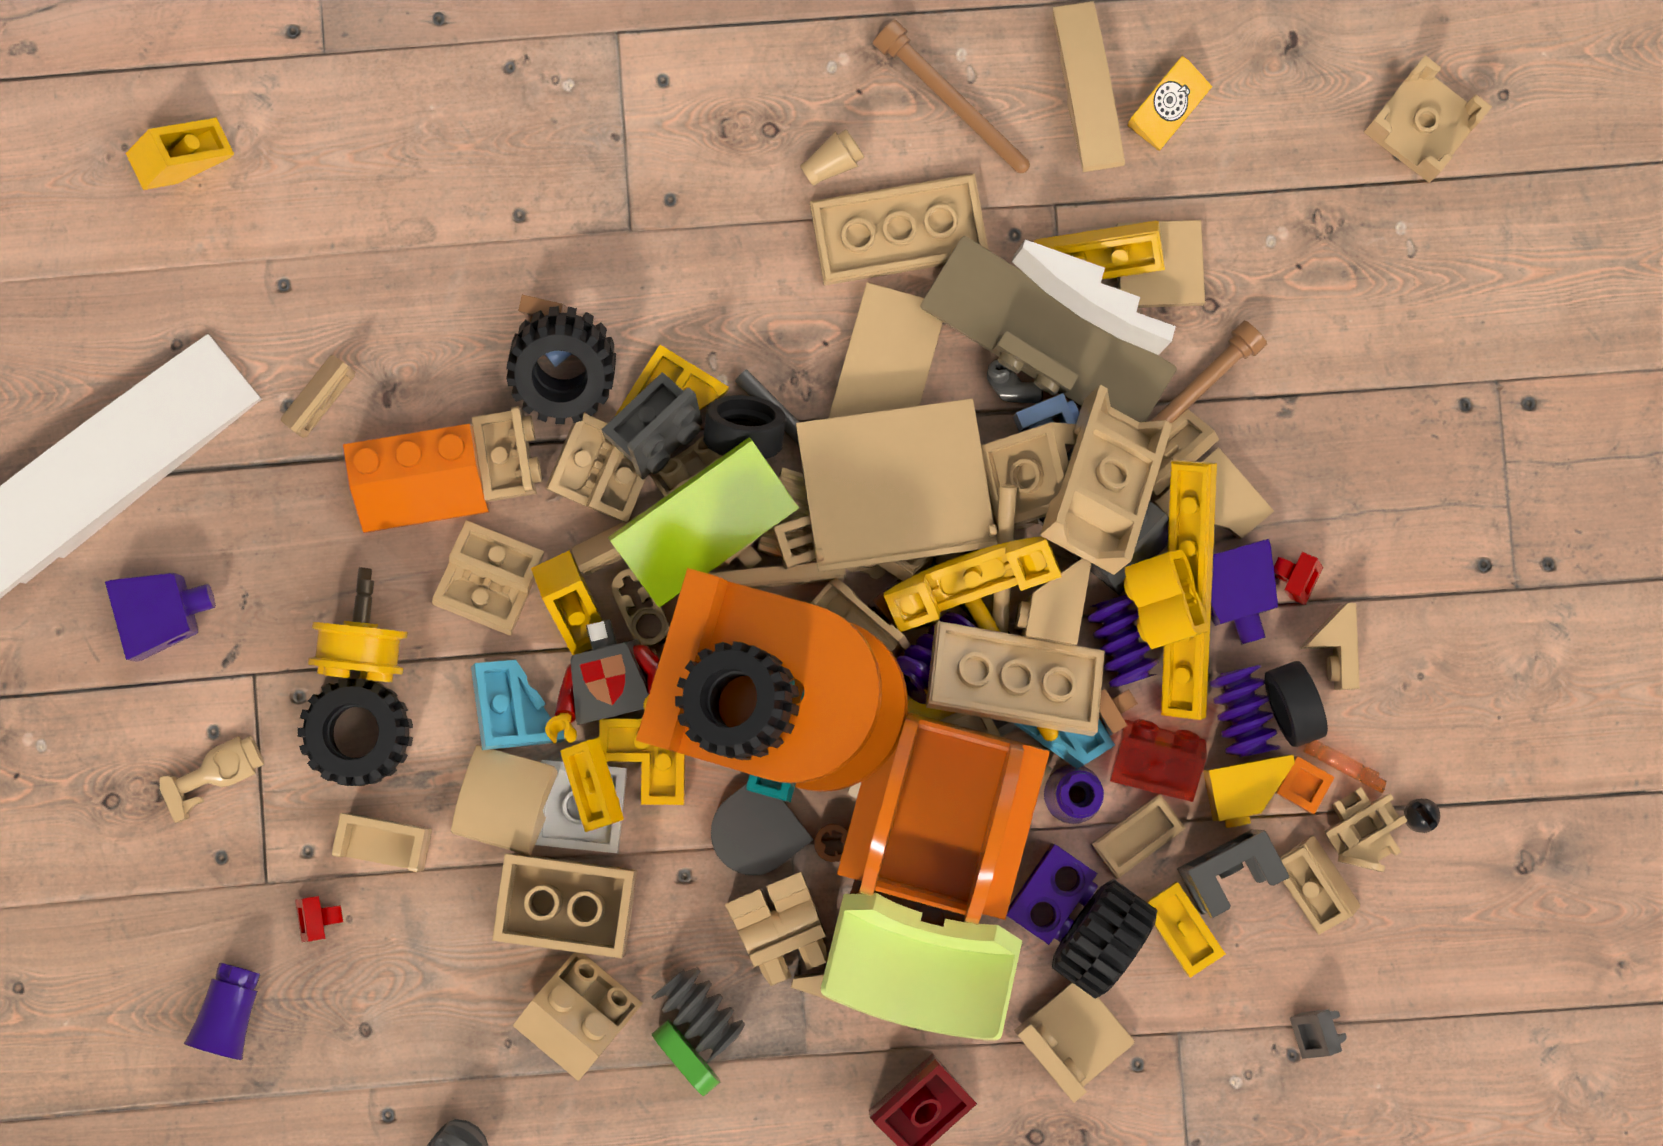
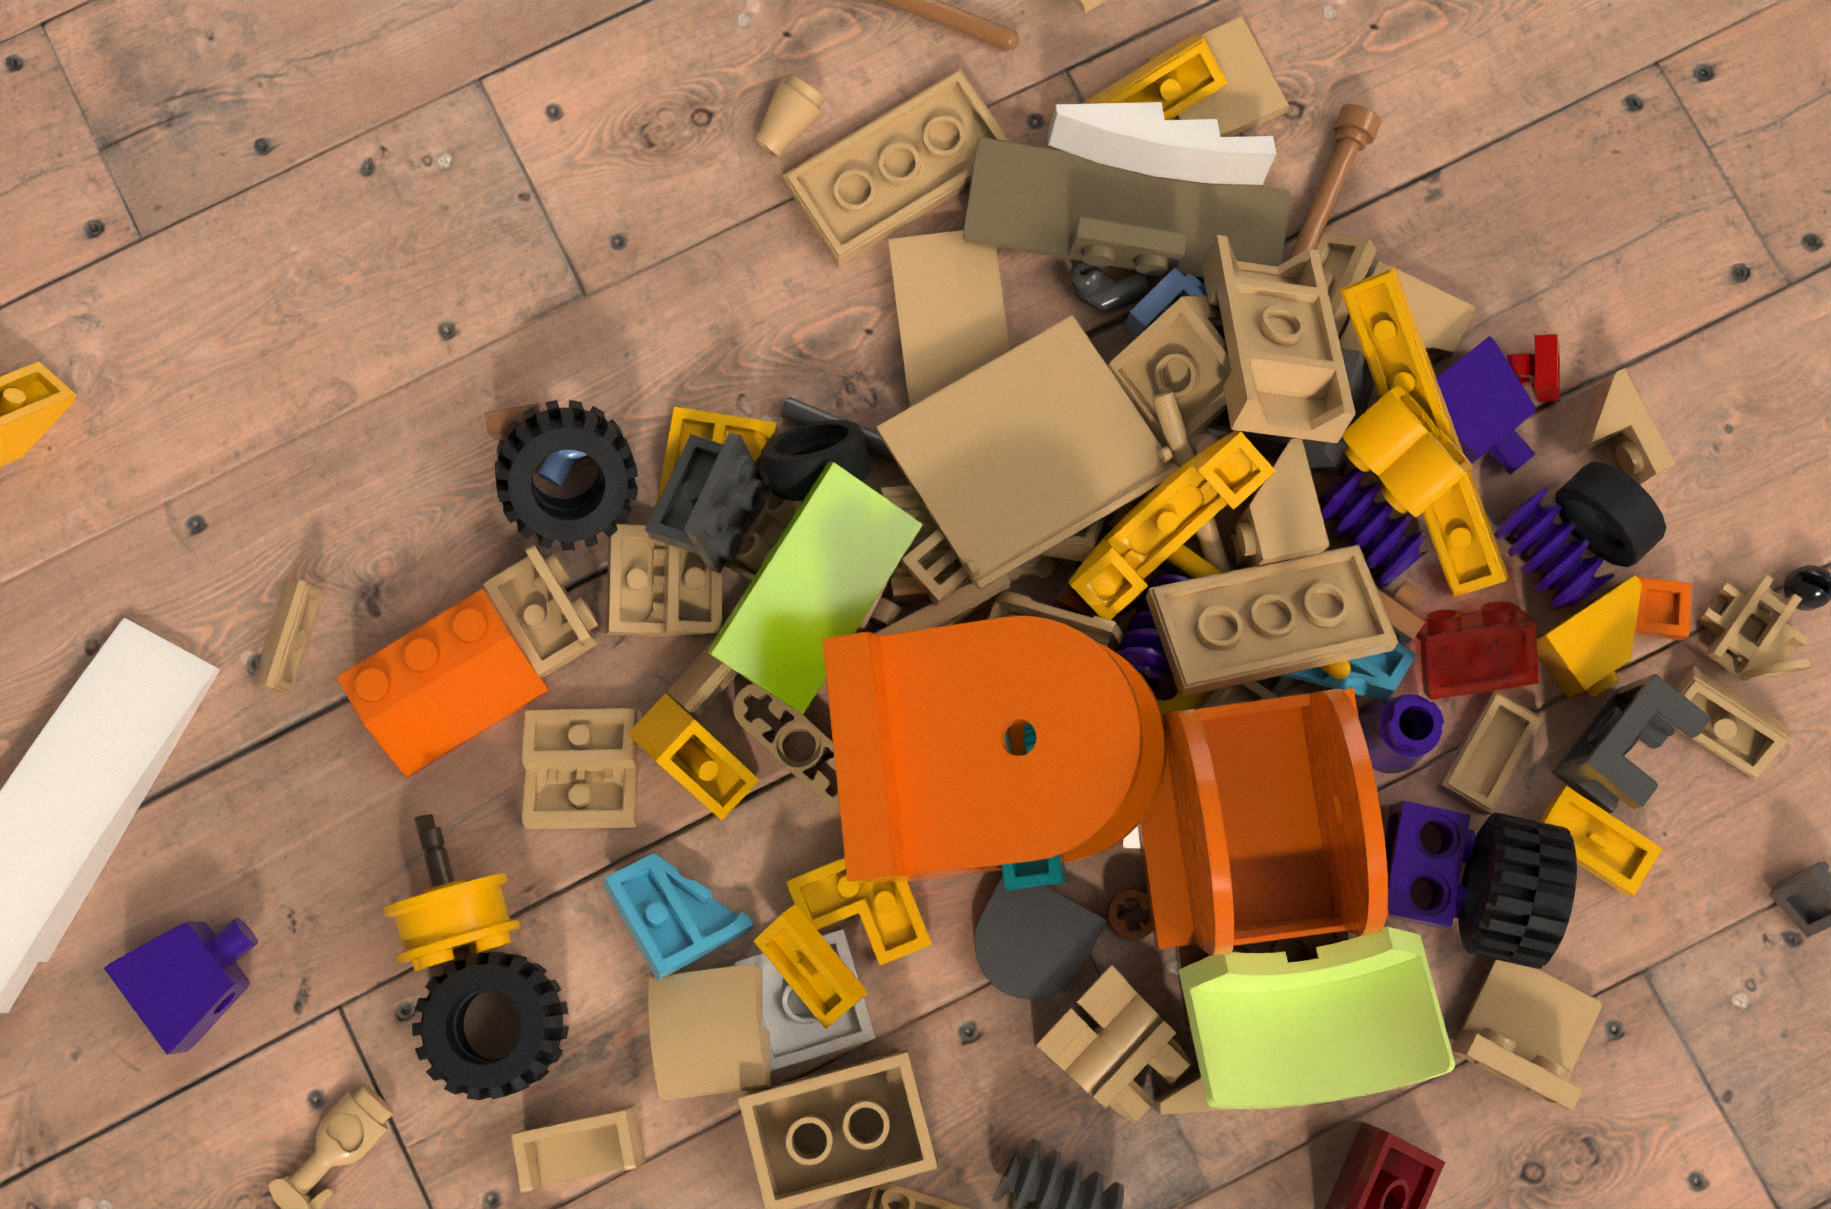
camera: 20 degrees left, 5 degrees down
(603, 681) = (773, 833): torso -> none
(703, 692) = (909, 763): black tyre -> none
(1345, 765) = (1694, 566): clear orange wheel -> none

